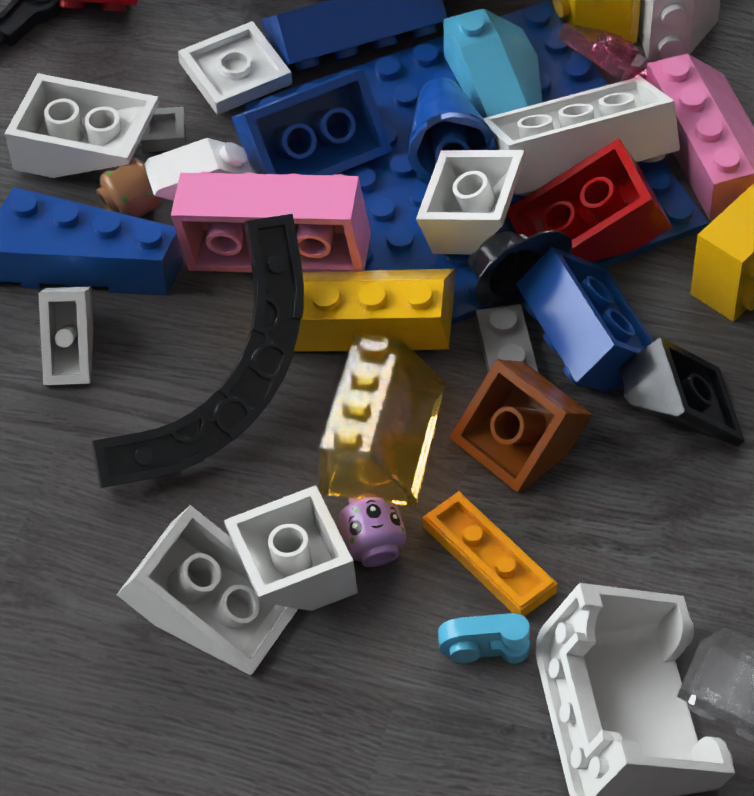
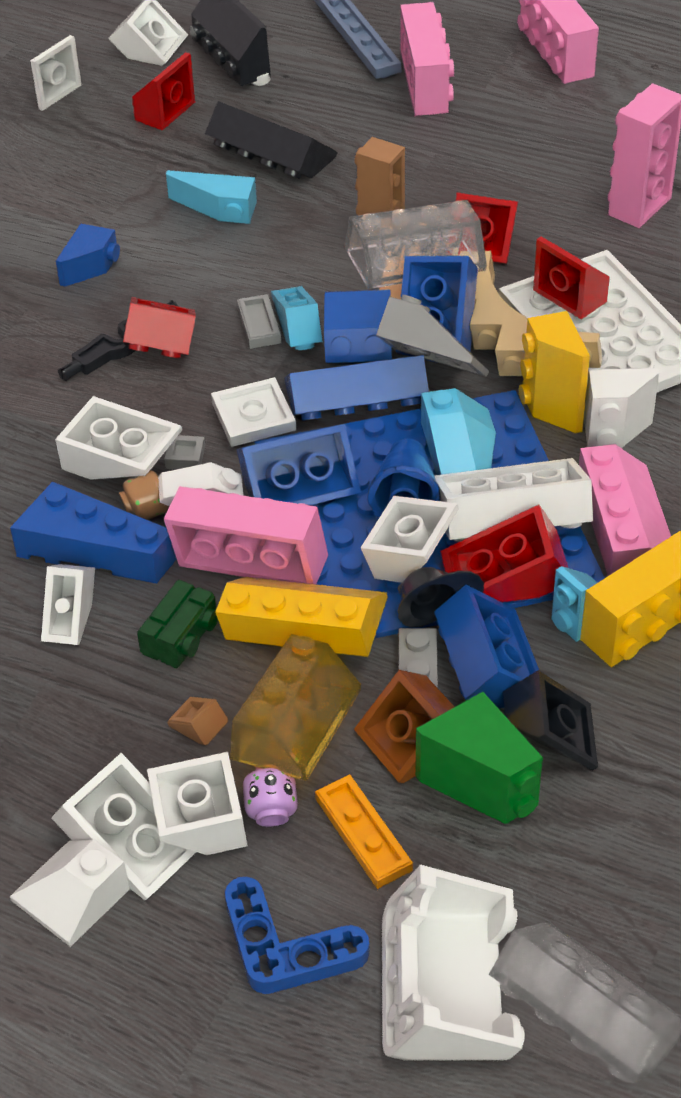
camera: 10 degrees right, 5 degrees down
(162, 673) = (73, 889): none -> white slope
(208, 340) = (178, 624): none -> dark green brick
(248, 387) = (195, 666): black plate -> none
(261, 452) = (199, 719): none -> medium nougat slope
(431, 713) = (283, 956): none -> blue beam
(485, 636) = (342, 898): medium azure plate -> none
(606, 50) = (550, 434): clear pink piece -> none
(613, 452) = (480, 760): none -> green slope
(675, 250) = (569, 600): none -> medium azure slope

